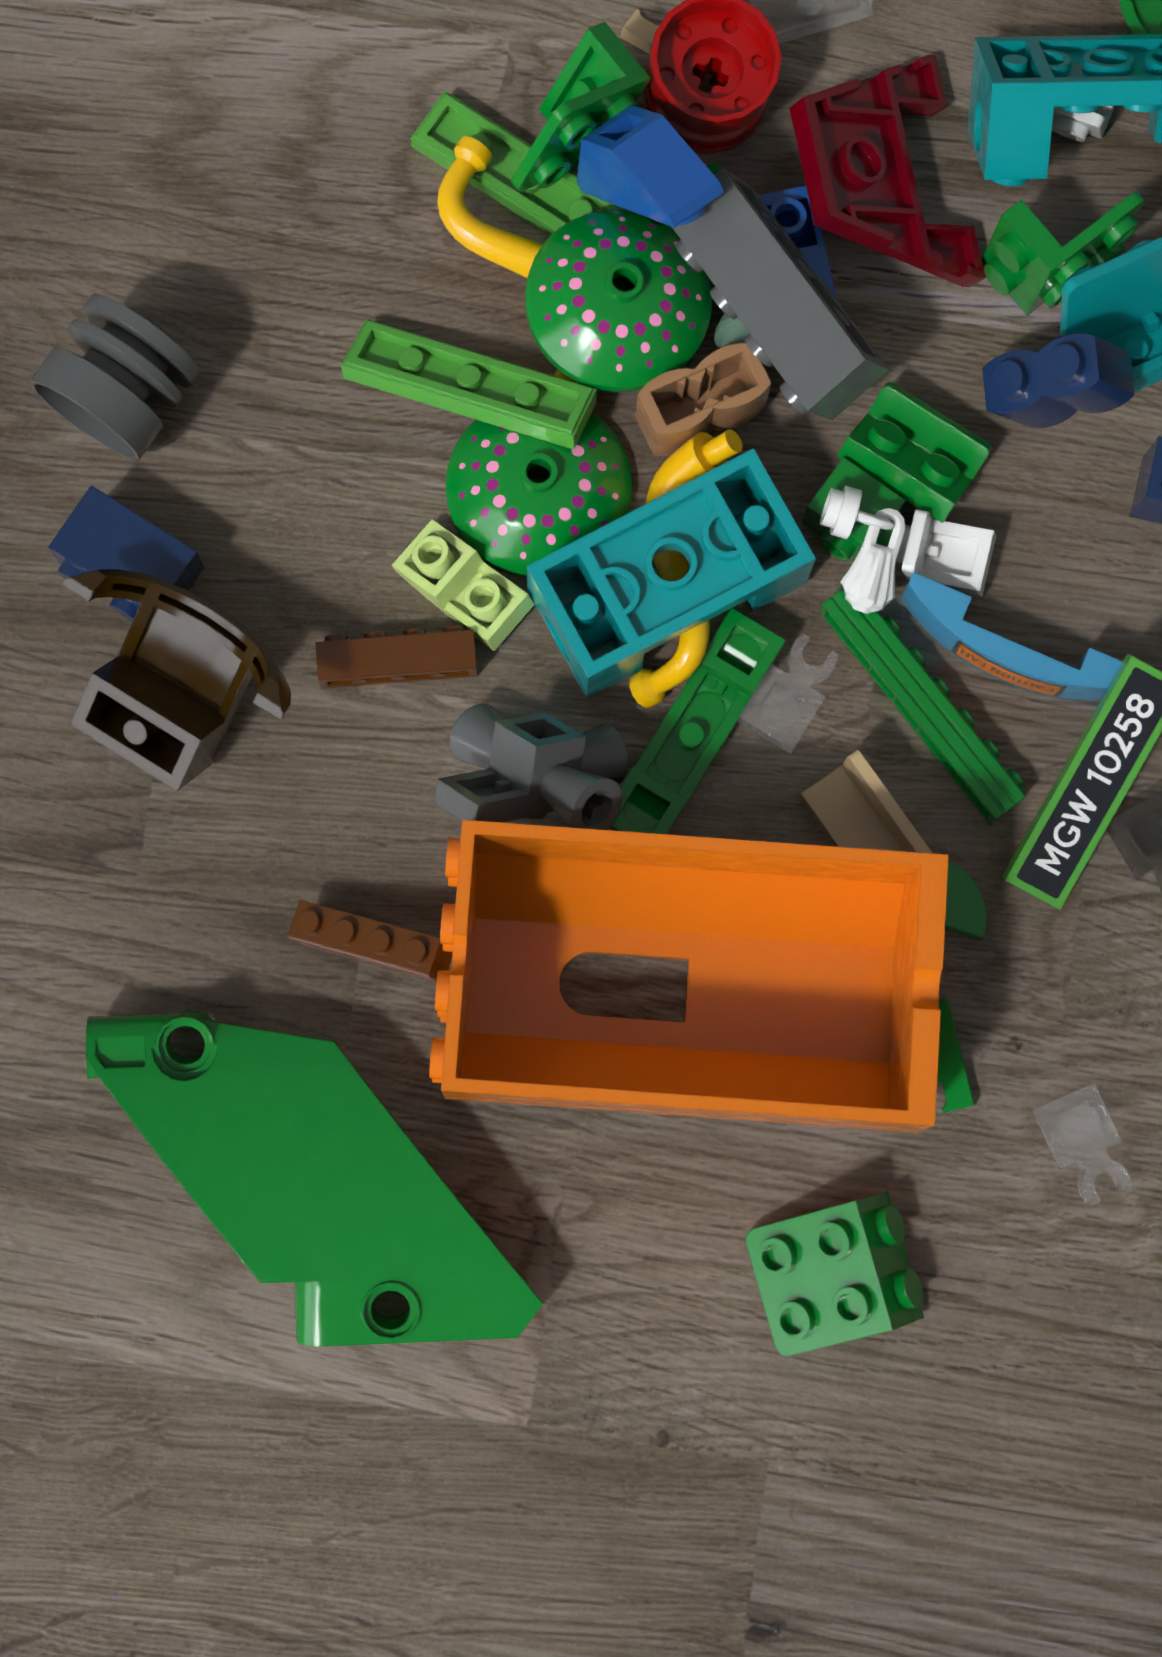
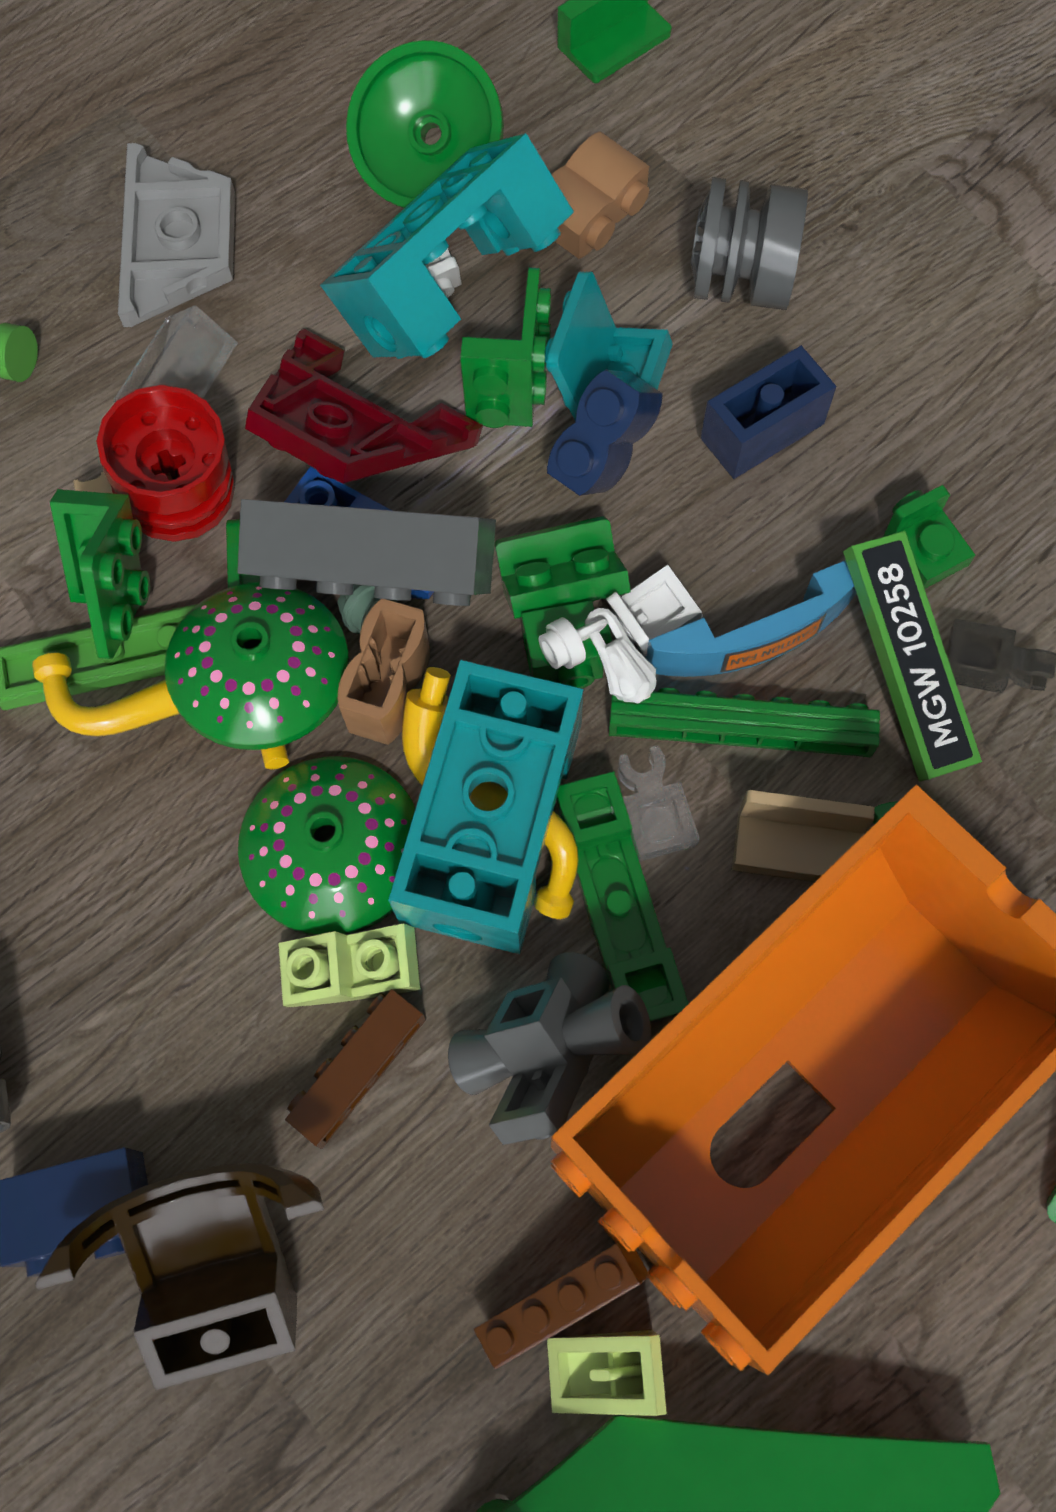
camera: 40 degrees left, 10 degrees down
(355, 1015) = (607, 1374): none -> yellowish green slope
(469, 384) = (208, 823): bright green tile -> none
(646, 168) = (185, 550): blue slope -> none

